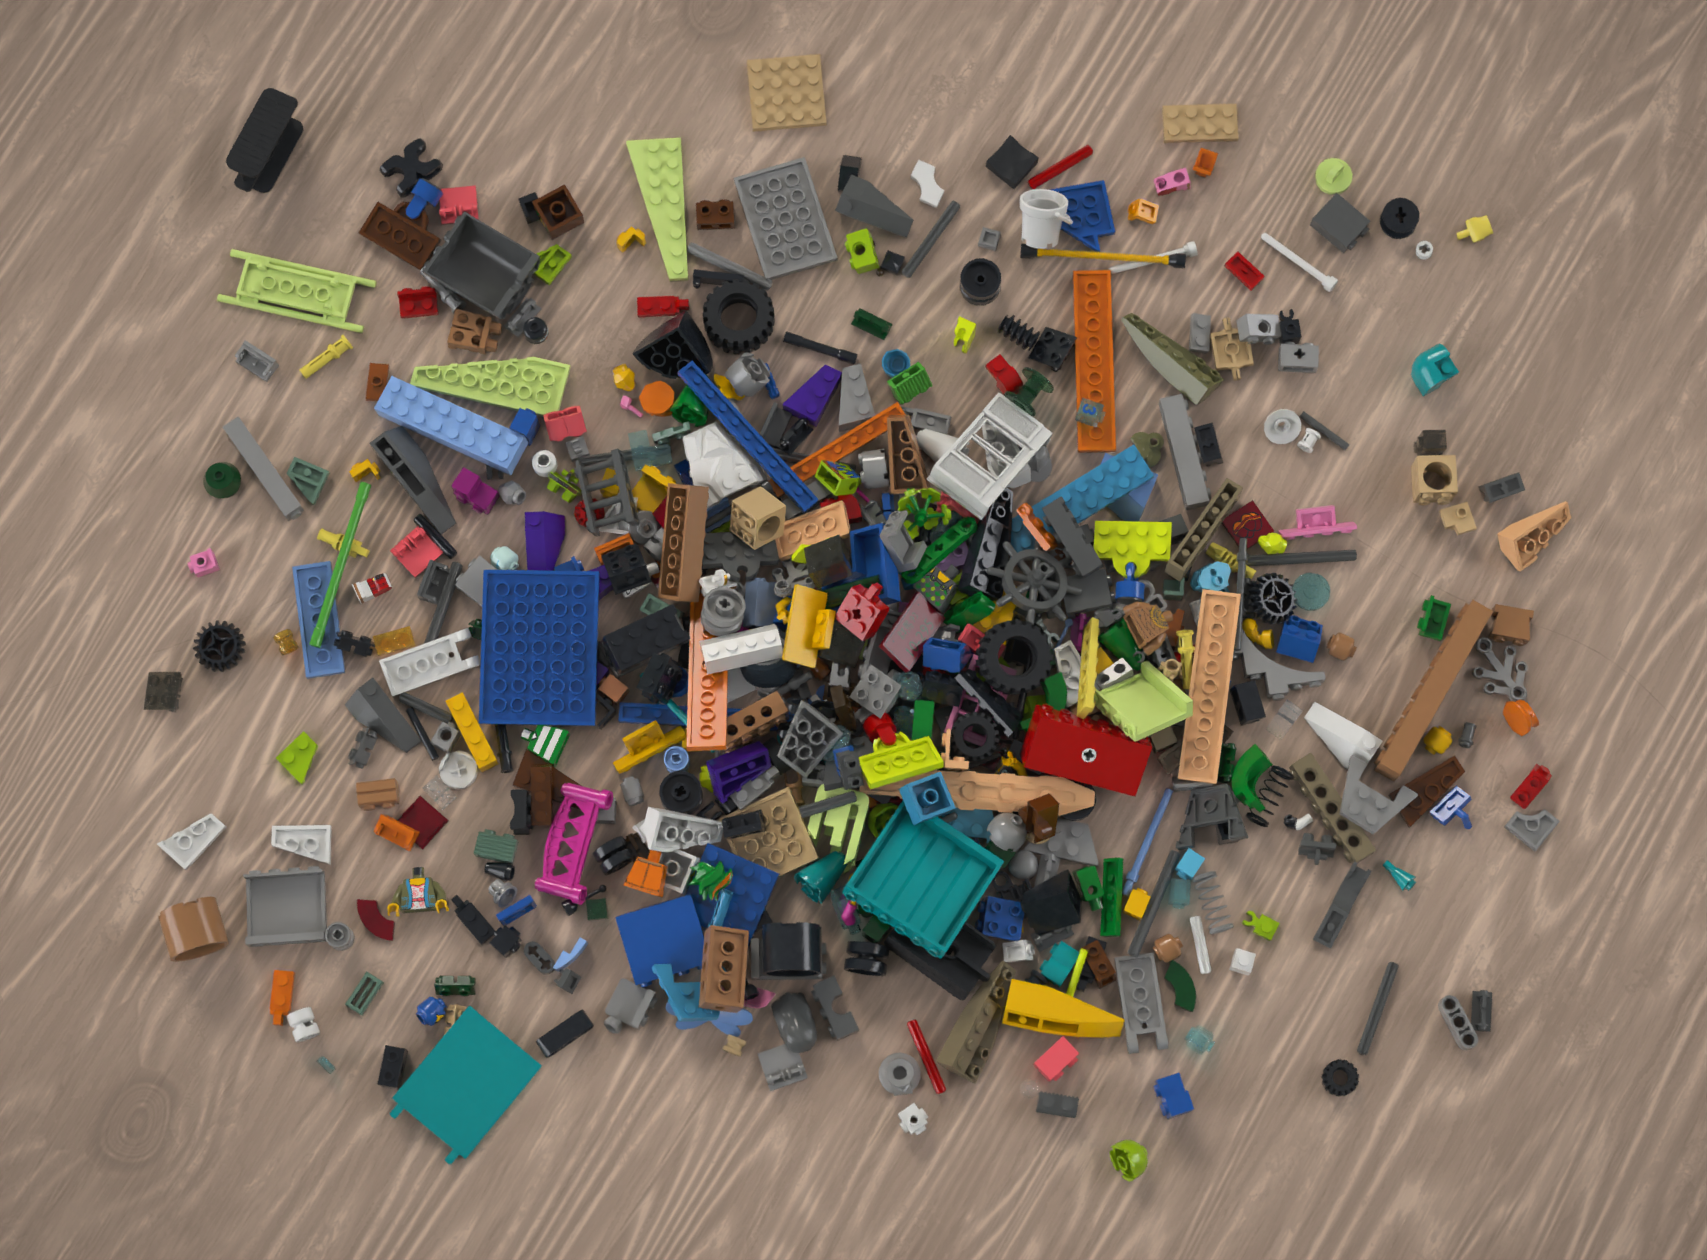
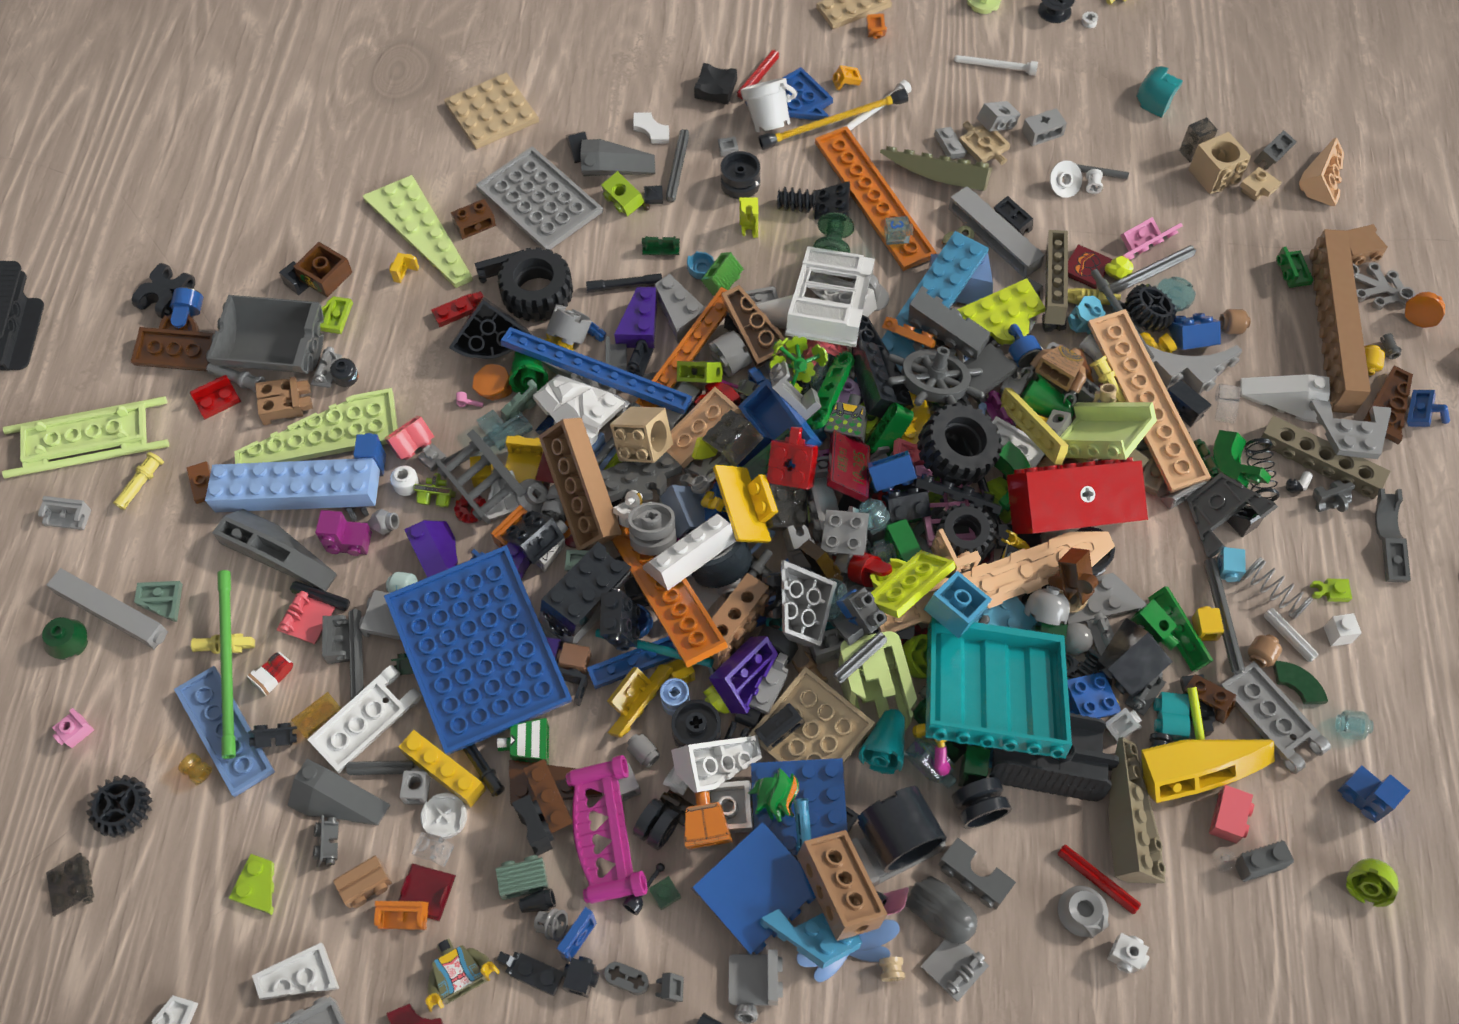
camera: 25 degrees left, 15 degrees down
(362, 469) = (219, 562): yellow bracket -> none
(422, 733) = (387, 796): black bar -> none
(456, 201) = (214, 302): coral hinge -> none
(566, 959) = (658, 962): light blue slope -> none
(624, 377) = (450, 377): yellow rock -> none
(728, 265) = (487, 253): light grey axle -> none
(821, 669) = (774, 546): dark orange cone -> none
(1005, 375) = (803, 232): red brick -> none
(1133, 876) = (1185, 600): medium blue bar -> none
(1172, 182) = (858, 48): bright pink leg -> none
(1173, 590) = (1062, 337): sand green panel -> none
(1179, 893) = (1240, 594): clear light blue brick -> none
(1244, 271) = (957, 86): red plate -> none
(1289, 328) = (1024, 106): black brick -> none
(1340, 223) = (1012, 25): dark grey brick -> none
(1403, 878) = (1428, 488): teal cone -> none

